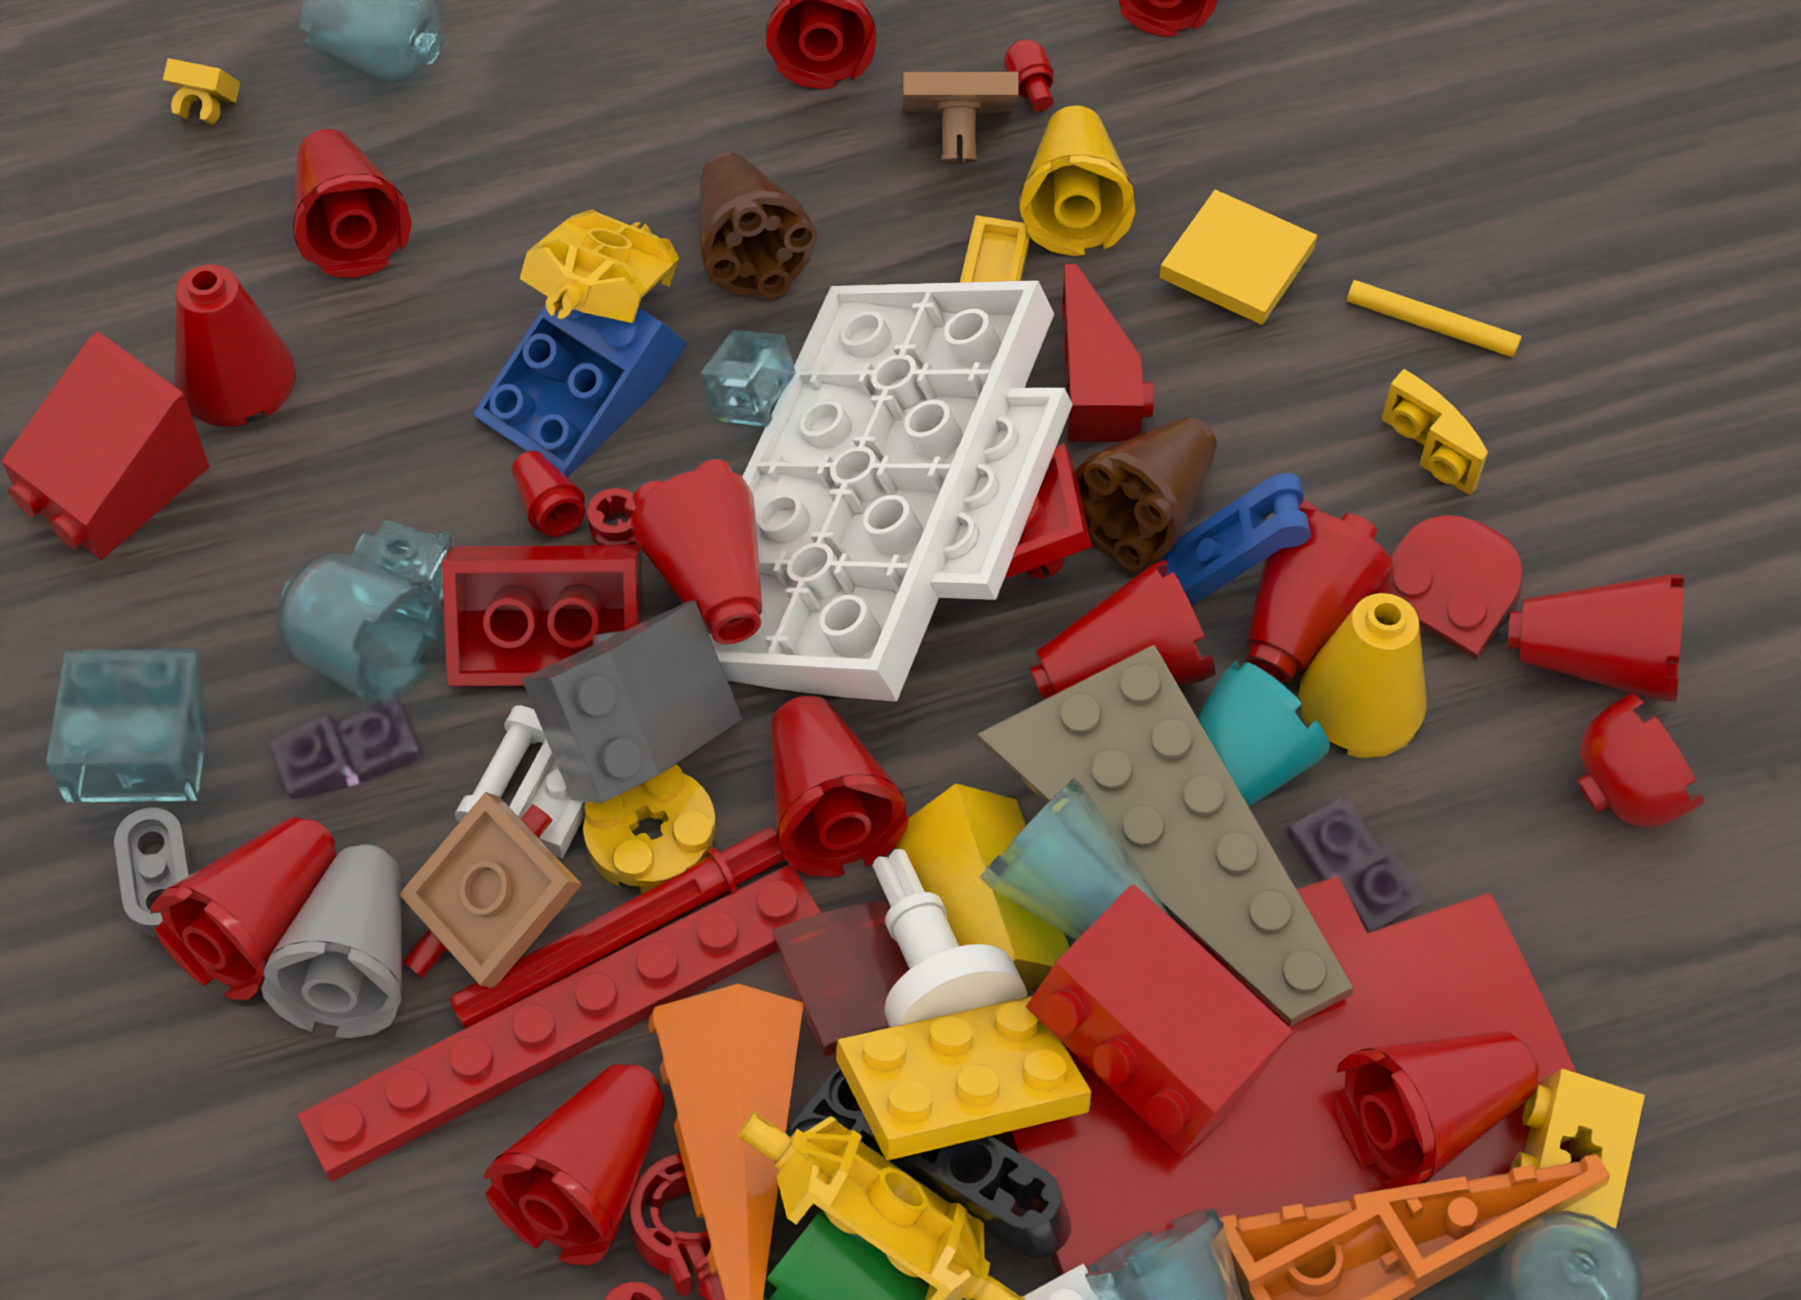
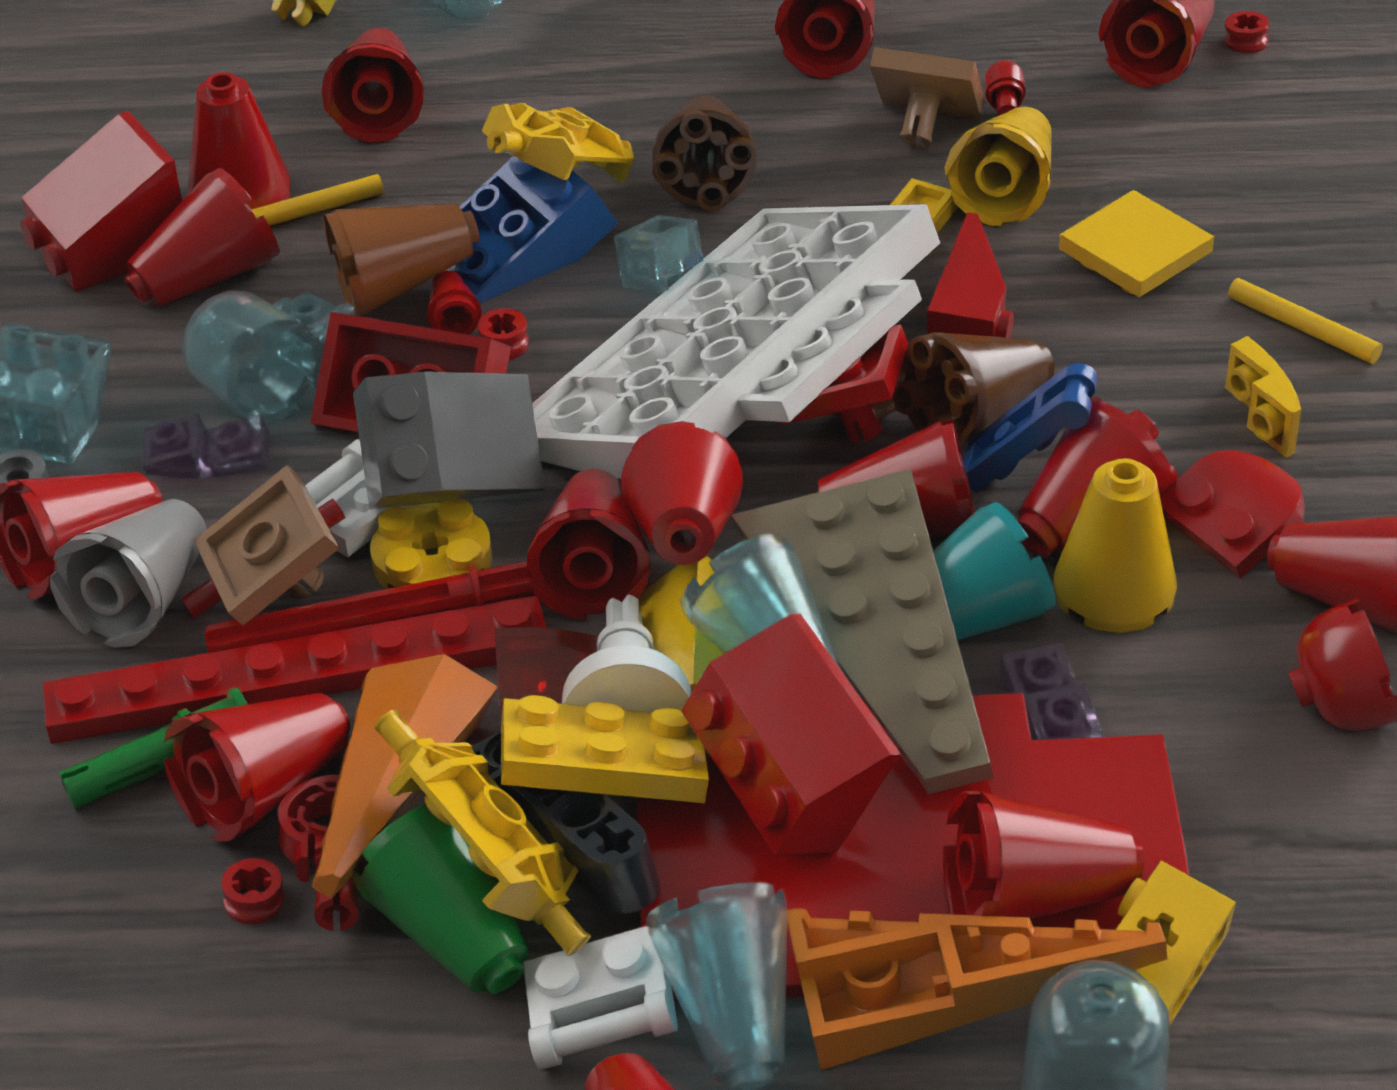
camera: 20 degrees right, 15 degrees down
(236, 478) = (201, 243): none -> red cone
(322, 384) = (321, 200): none -> yellow bar
(461, 1171) = (129, 761): none -> green pin
(466, 445) = (395, 249): none -> dark orange cone
(705, 545) = (560, 338): red cone -> none
(922, 726) = (682, 489): none -> red cone

